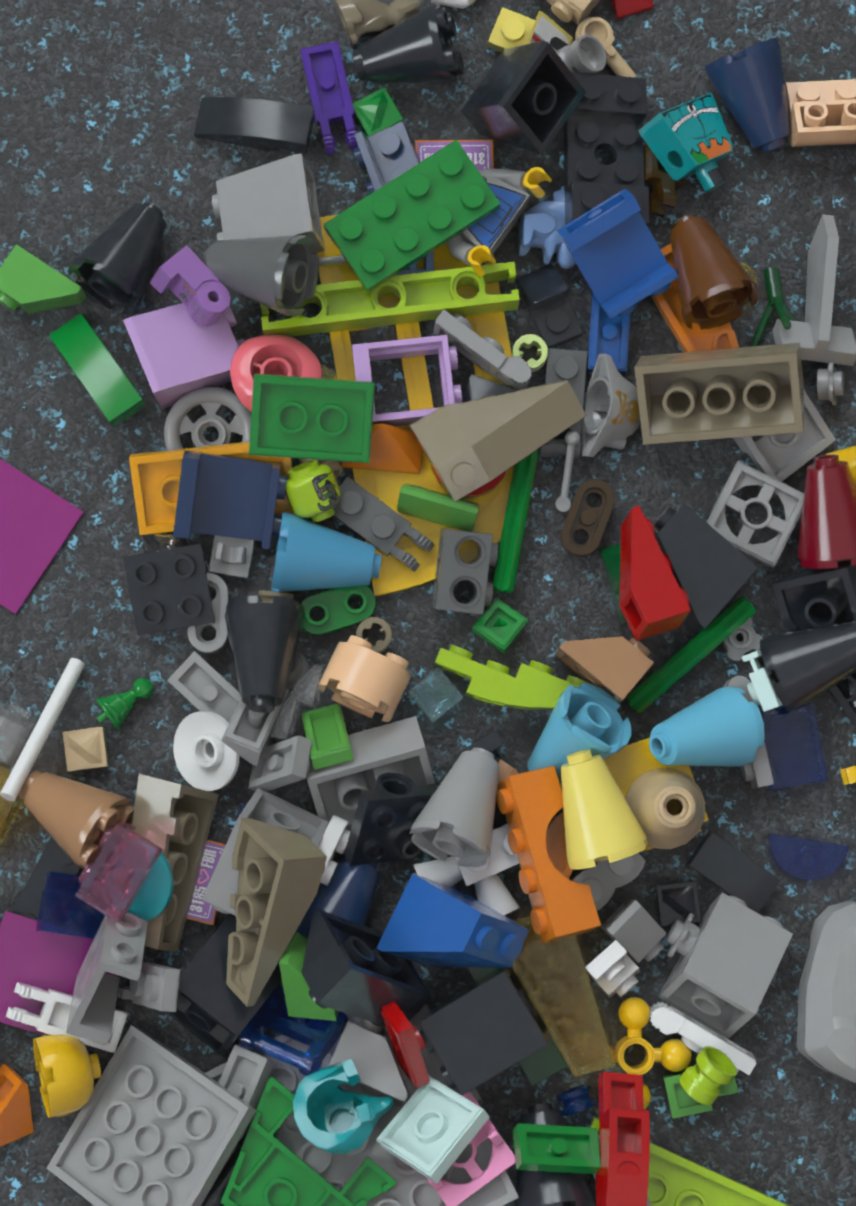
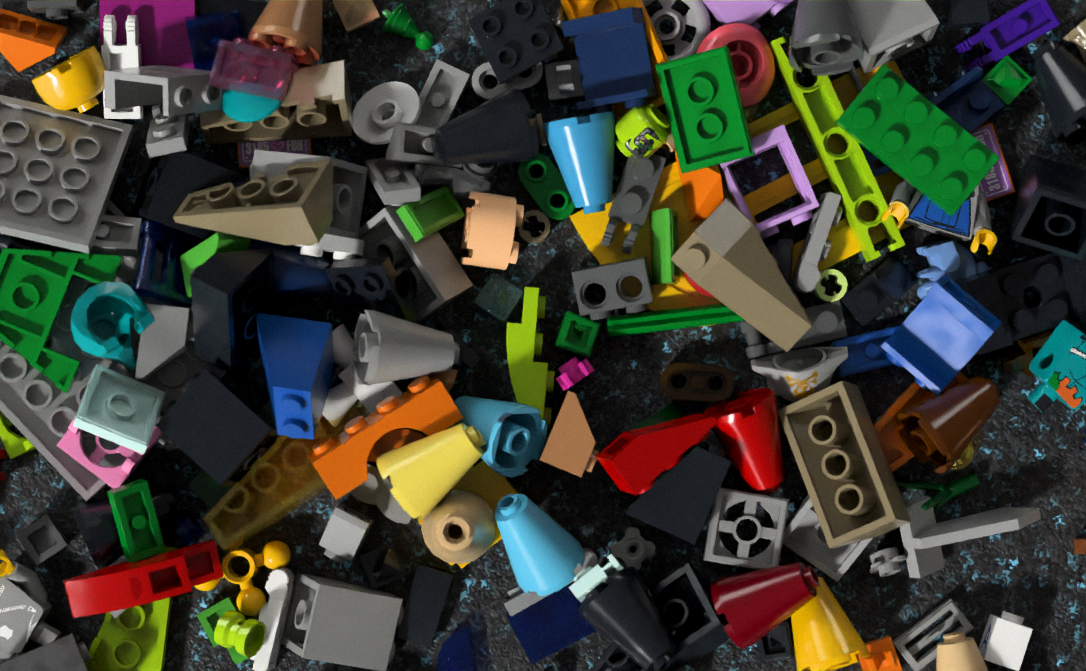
camera: 75 degrees right, 5 degrees up
(406, 1044) = (185, 364): red plate -> none
(539, 640) = (573, 372): none -> dark pink plate
(563, 502) = (706, 356): light grey hinge -> none
(614, 970) = (305, 525): white slope -> none
(661, 478) = (751, 437): none -> red cone
(682, 936) = (354, 576): light grey plate -> none
(691, 654) = (603, 510): green axle -> none

